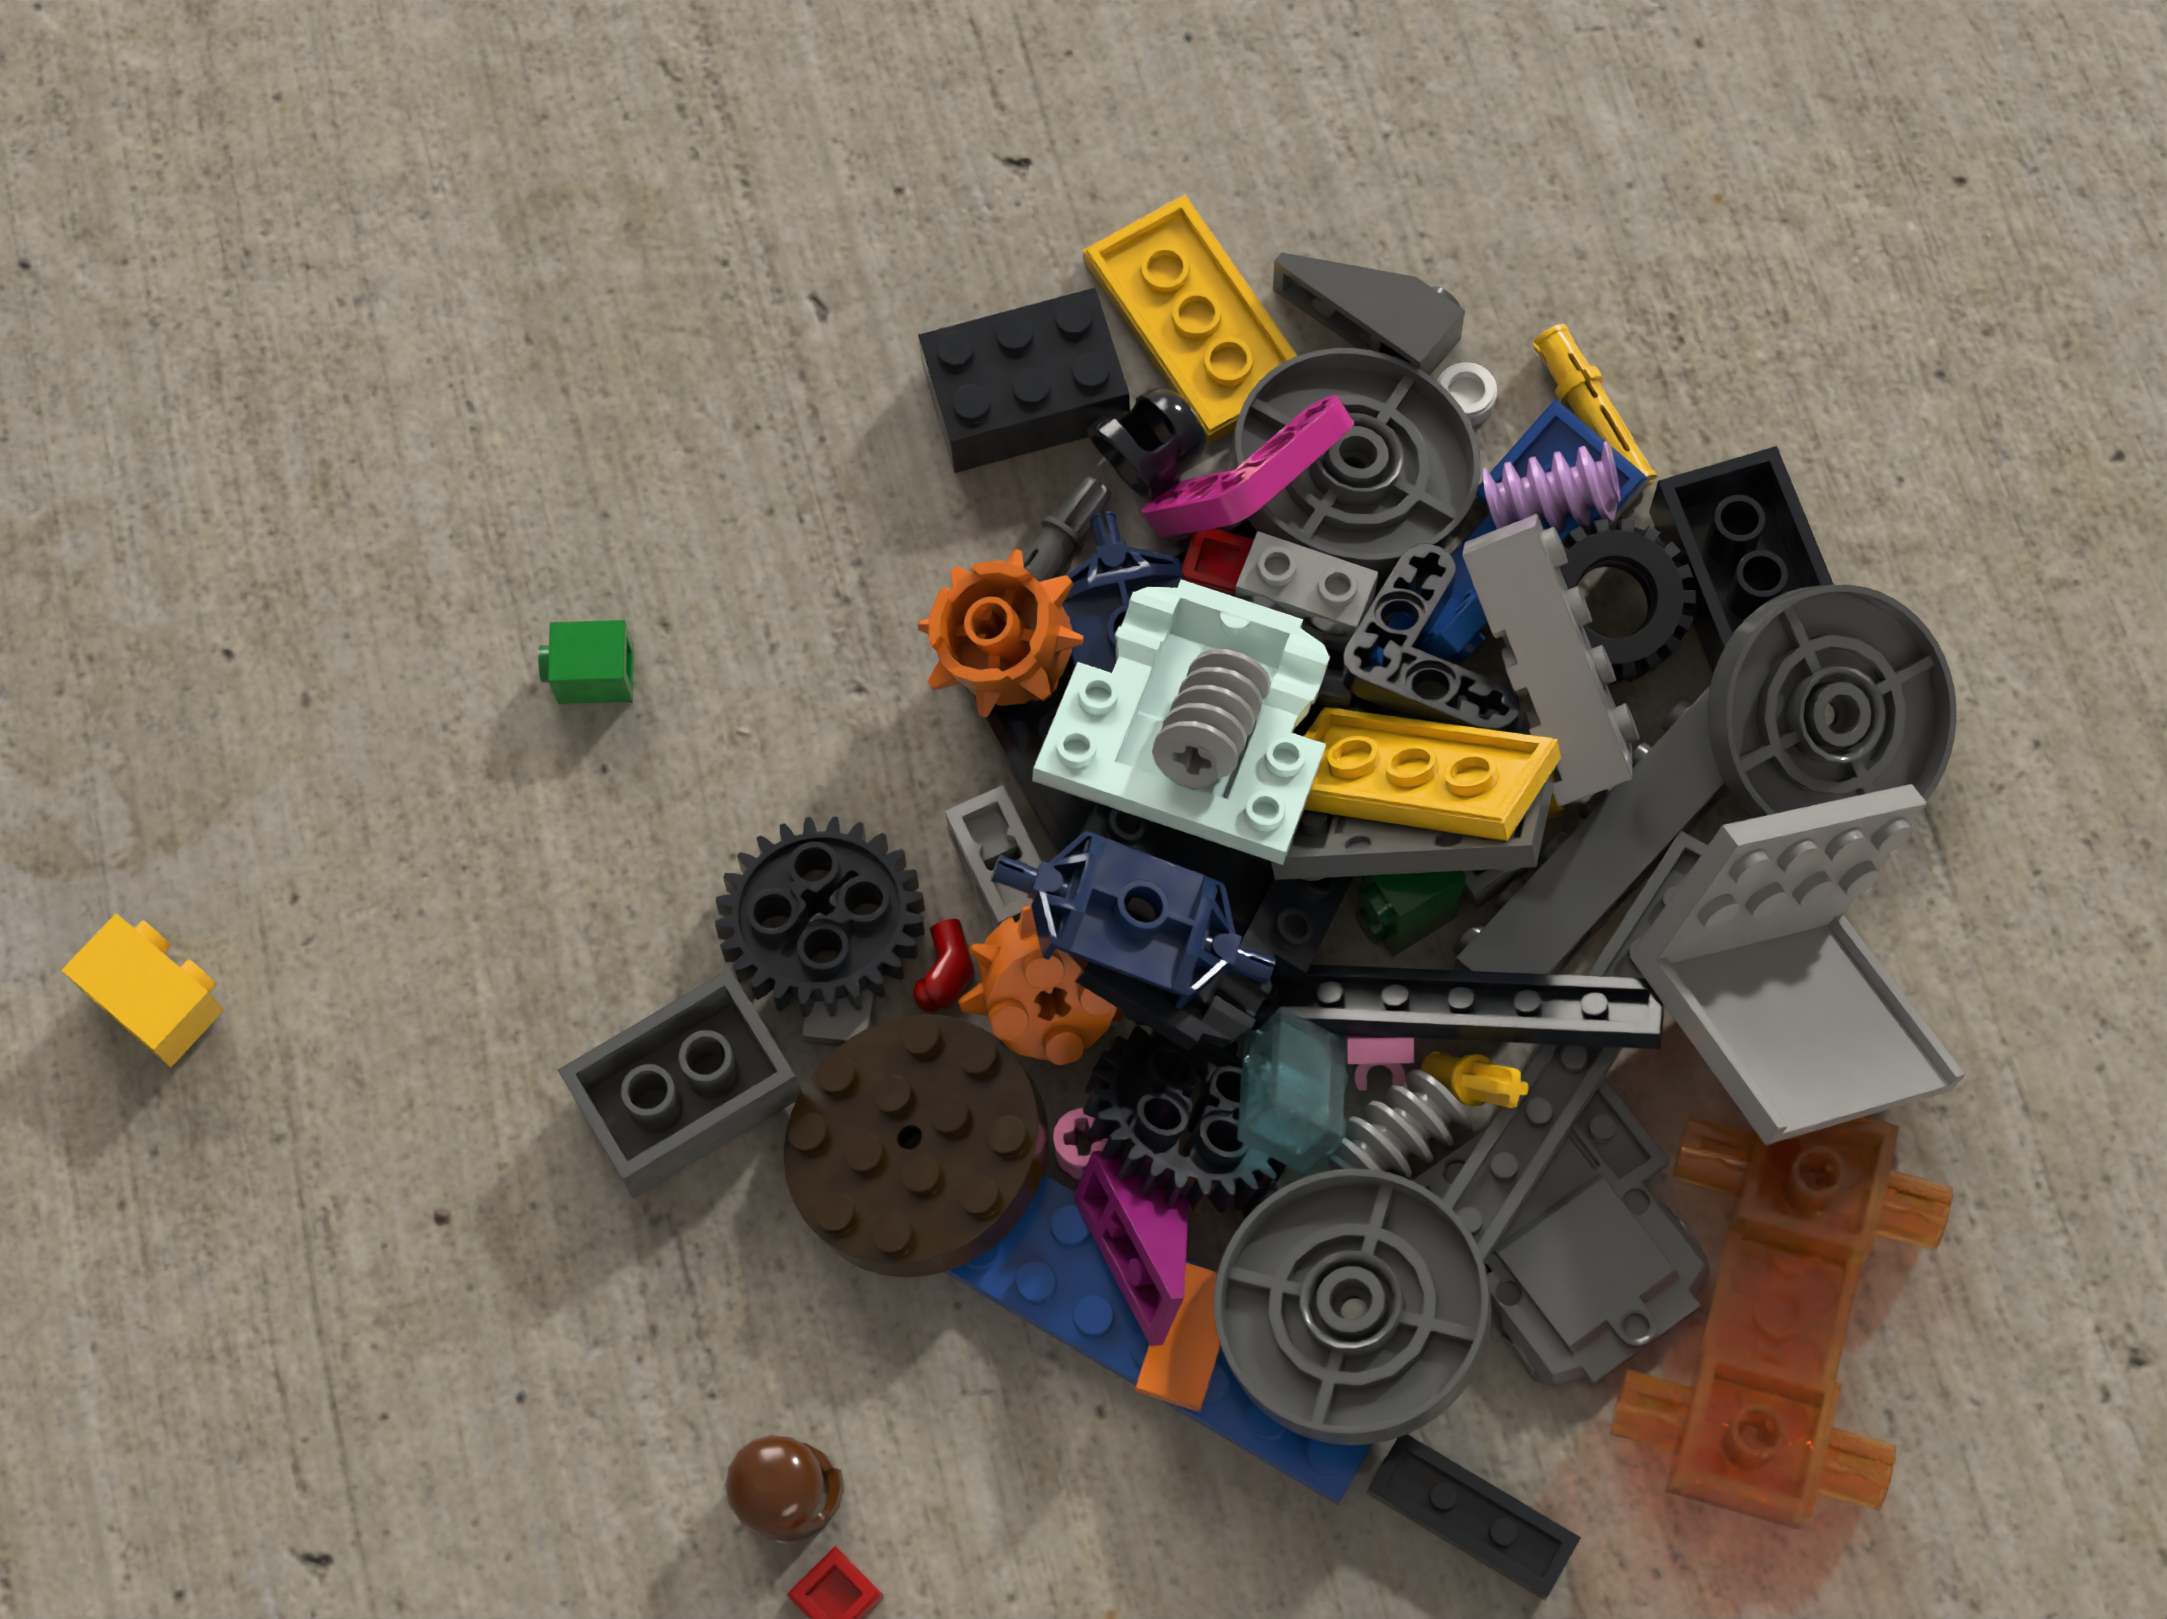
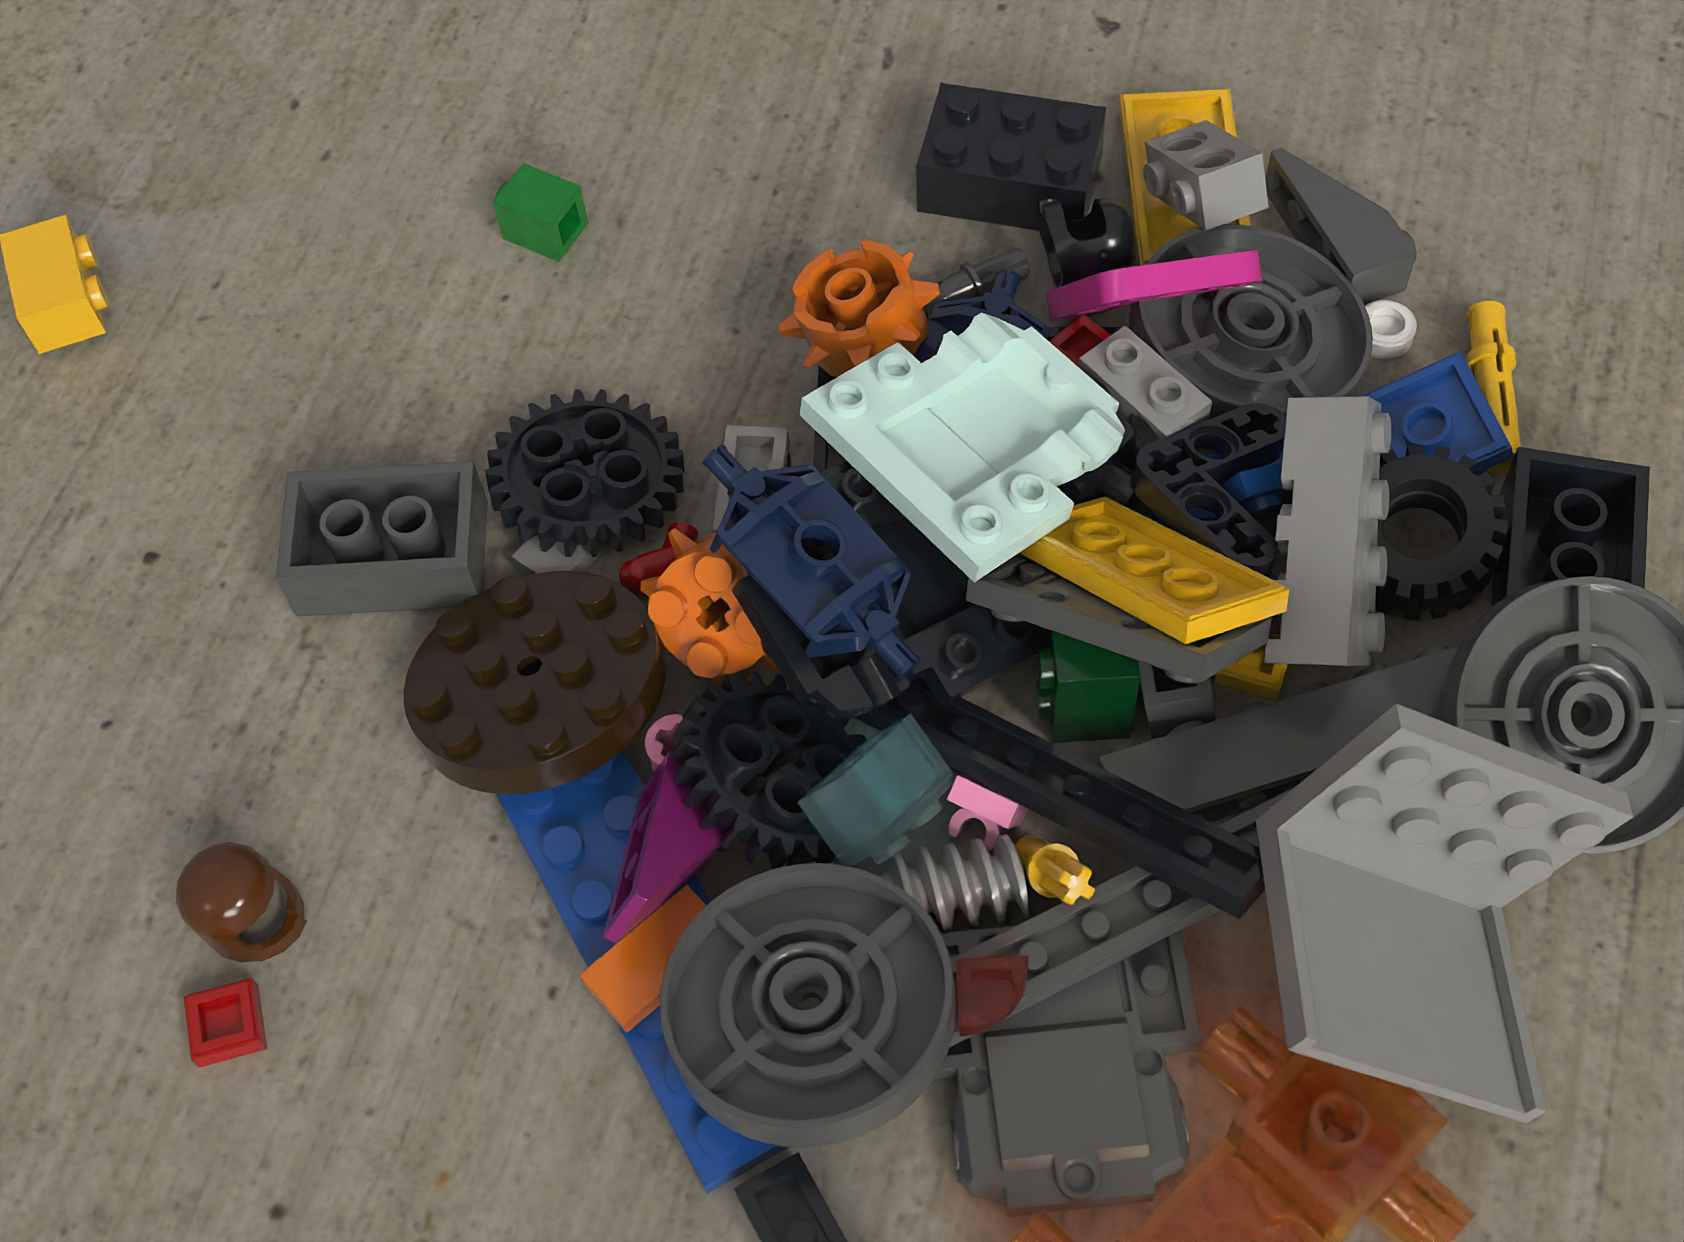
camera: 30 degrees right, 10 degrees down
(1211, 718) = (979, 426): light grey piece -> none
(1233, 322) = (1206, 175): none -> light grey brick
(1489, 1214) = (988, 990): none -> clear red tile
(1555, 492) = (1427, 418): lavender piece -> none

